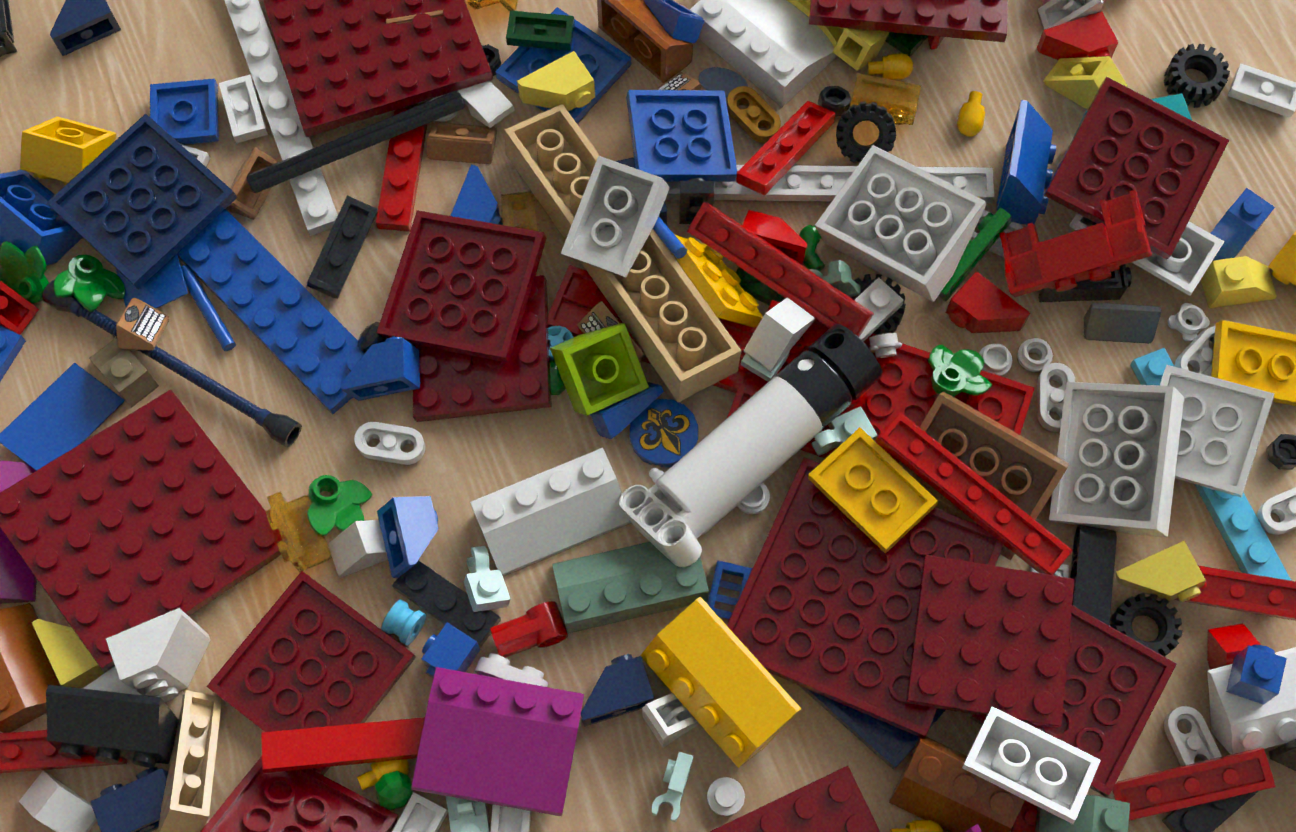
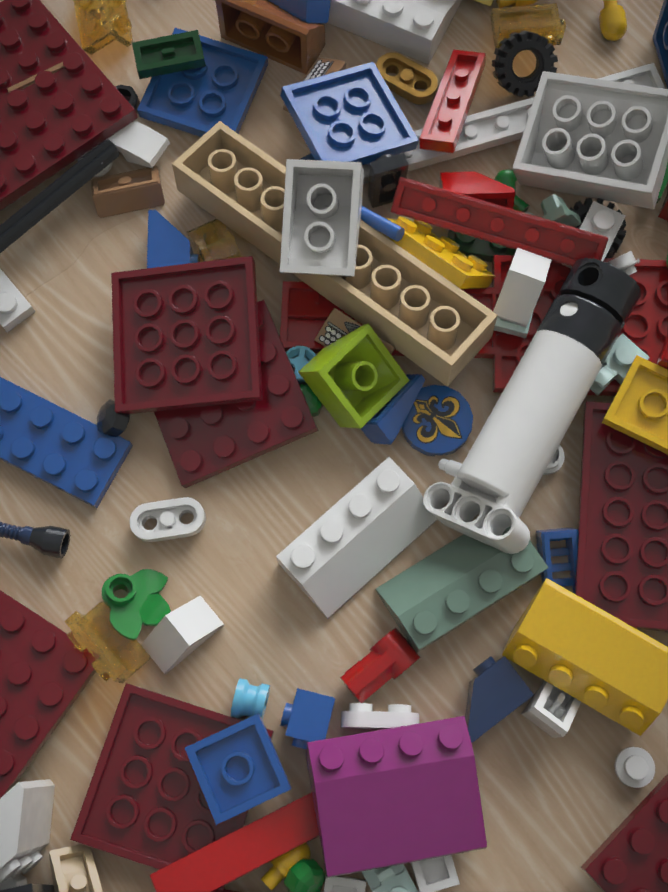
camera: 20 degrees left, 5 degrees up
(342, 247) = (45, 334): black plate -> none
(370, 672) = (238, 768): none -> blue plate
(384, 370) = (137, 447): blue slope -> none
(401, 179) = (79, 247): red plate -> none
(407, 530) = (221, 607): slope -> none
(445, 602) = (284, 663): black plate -> none
(484, 587) = (317, 636): light aqua plate -> none
(558, 83) = (208, 101): light yellow slope -> none
(677, 776) = (582, 763): light aqua plate -> none
(721, 79) = (360, 53): sand blue sticker -> none
(835, 99) = (479, 40): black tile -> none

